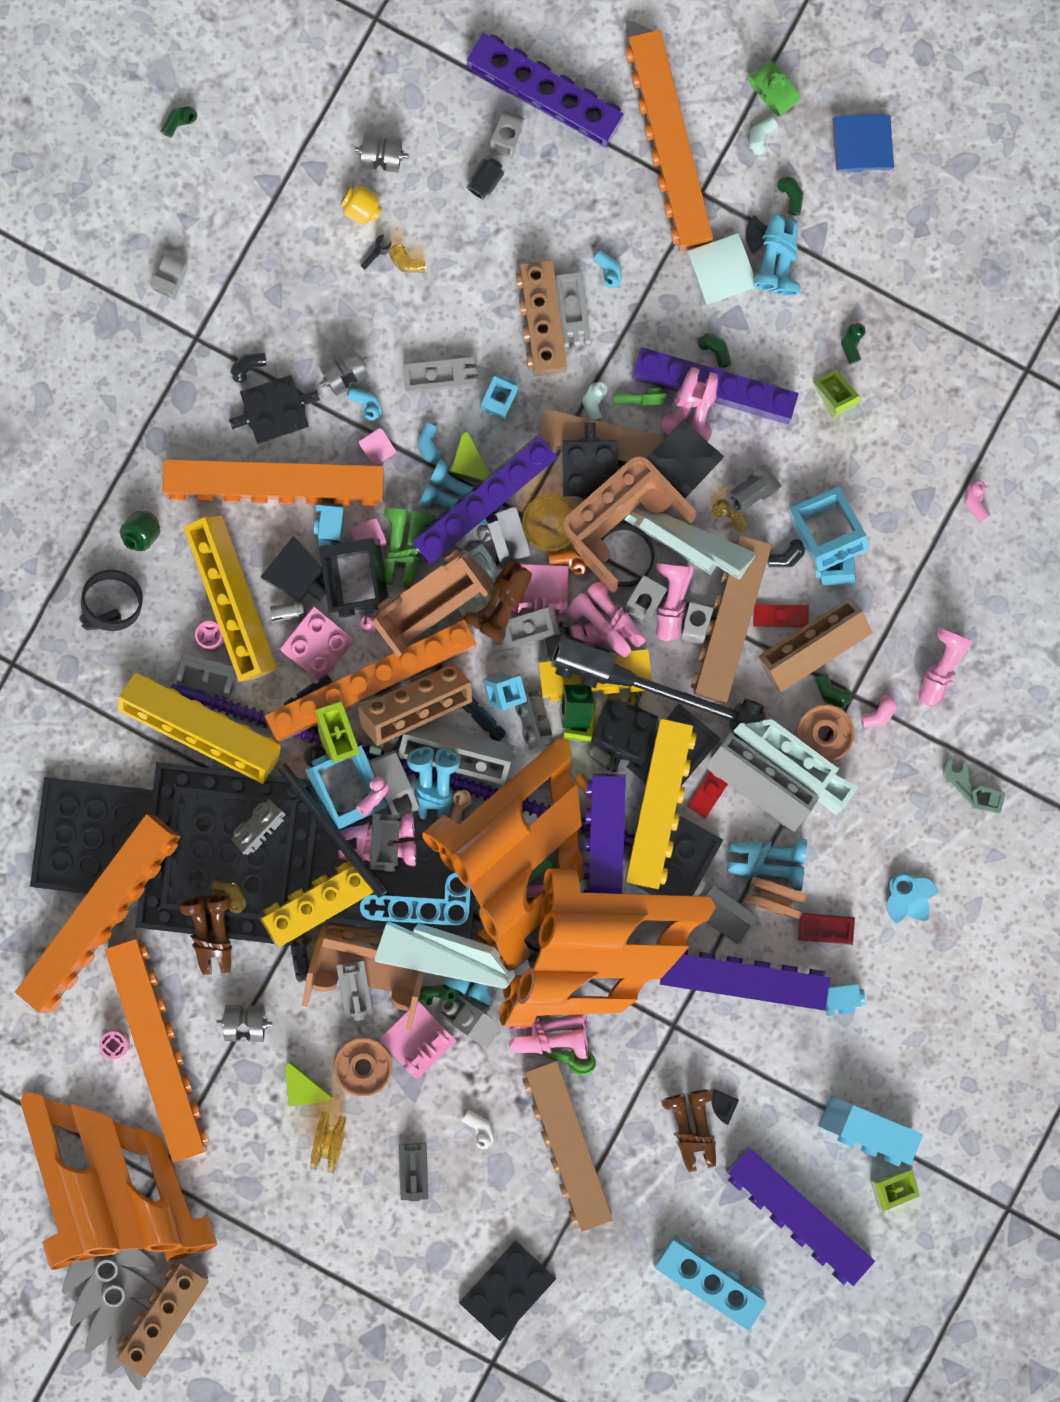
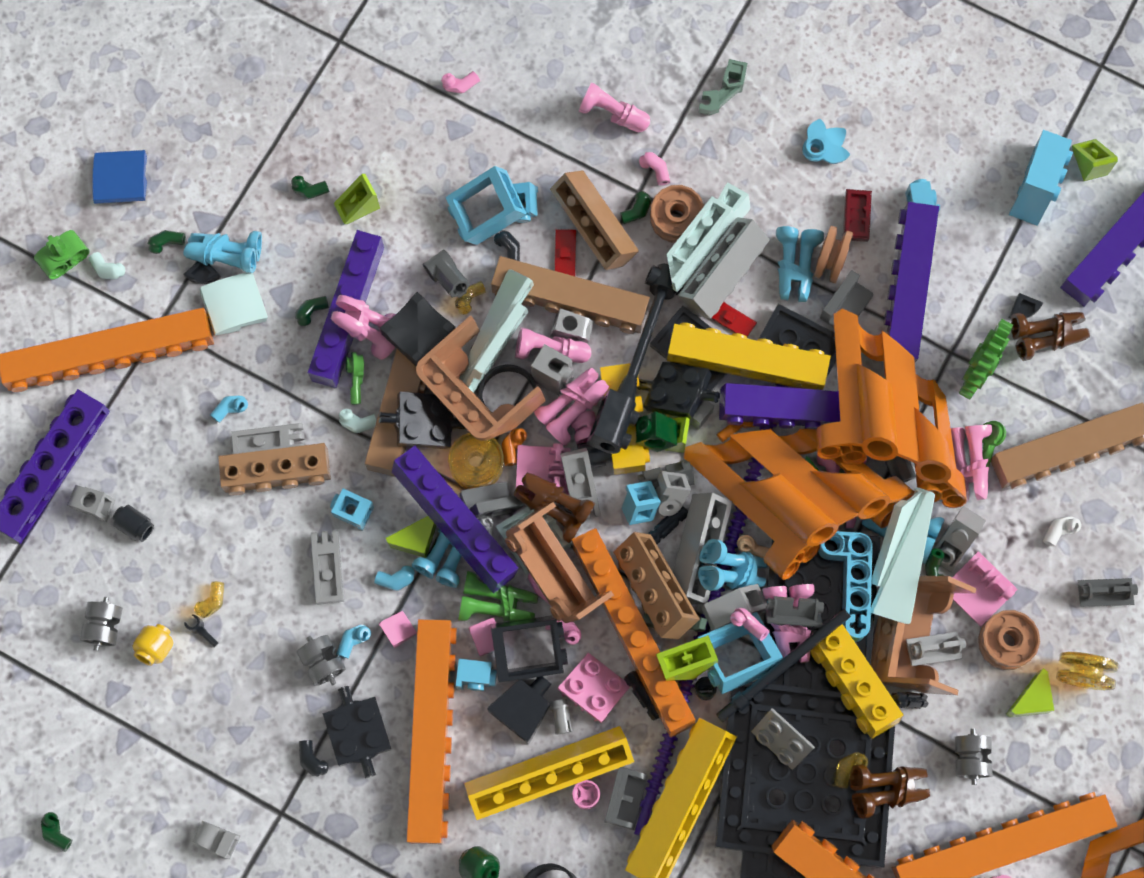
camera: 80 degrees left, 10 degrees down
(515, 722) = (672, 492): none -> light grey leg
(655, 1053) = (985, 359): none -> bright green gear

